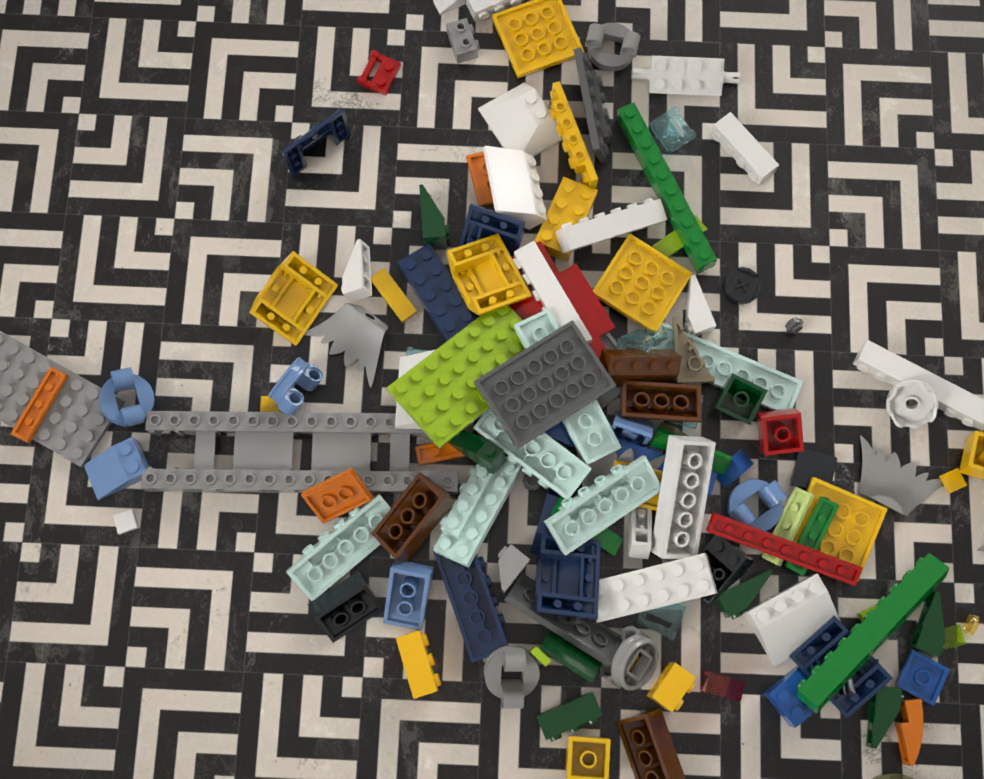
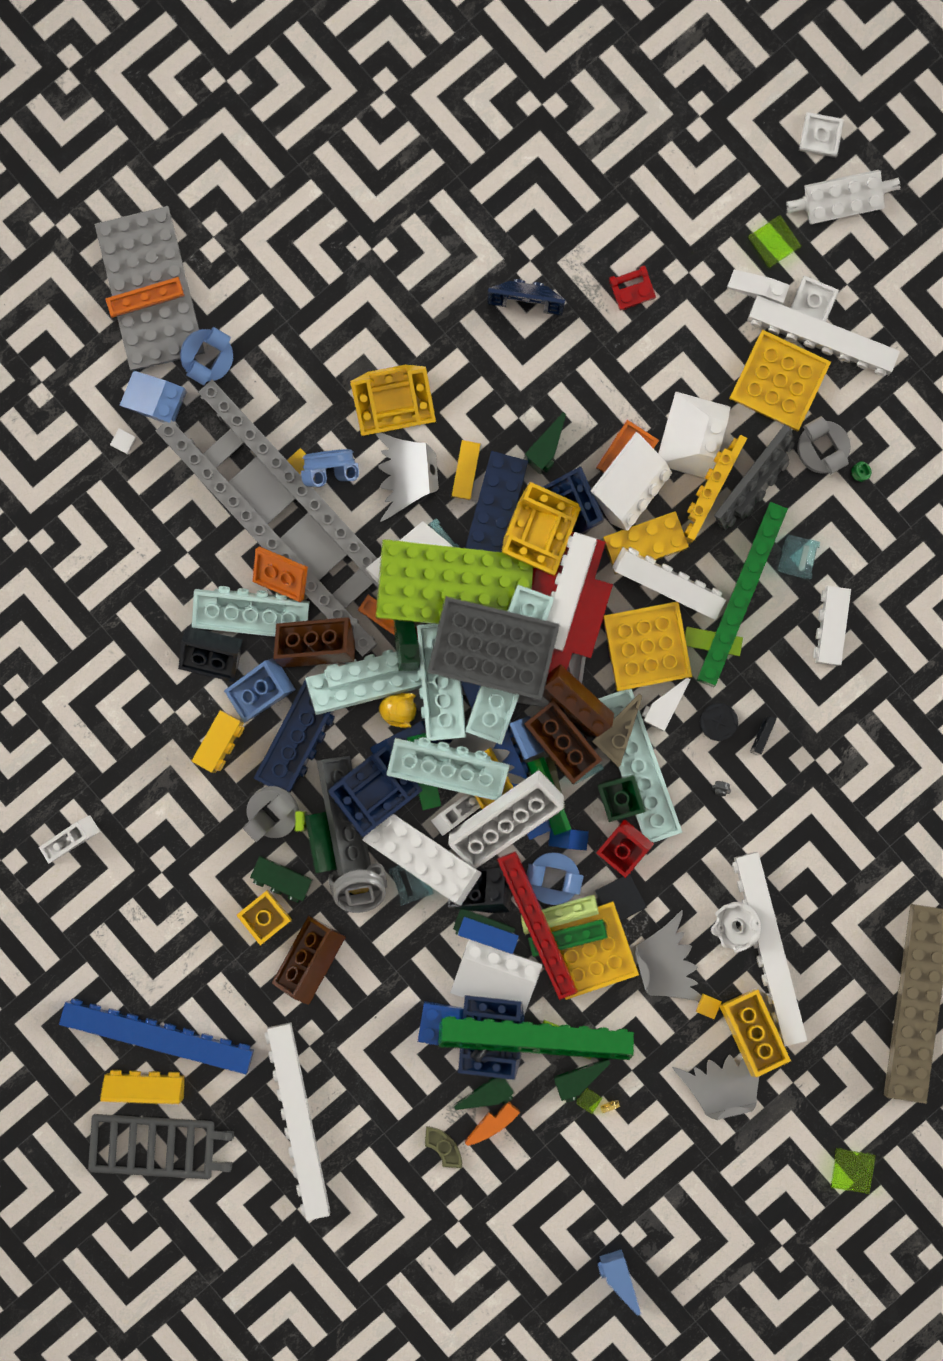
camera: 45 degrees right, 10 degrees up
(357, 275) = (456, 429): white slope -> none
(462, 40) = (718, 327): light grey brick -> none
(510, 565) = (345, 743): light grey slope -> none
(522, 503) = (398, 709): none -> yellow helmet
(641, 339) = (603, 688): clear light blue plate -> none
(651, 38) = (861, 471): none -> green tile
(671, 687) = (366, 931): yellow brick -> none
(686, 75) = (852, 527): white plate -> none
(723, 686) = (401, 969): clear red slope -> none
(758, 593) = (488, 935): none -> blue tile
(783, 261) = (763, 735): none -> black tile
(922, 677) = (538, 1102): blue plate -> none

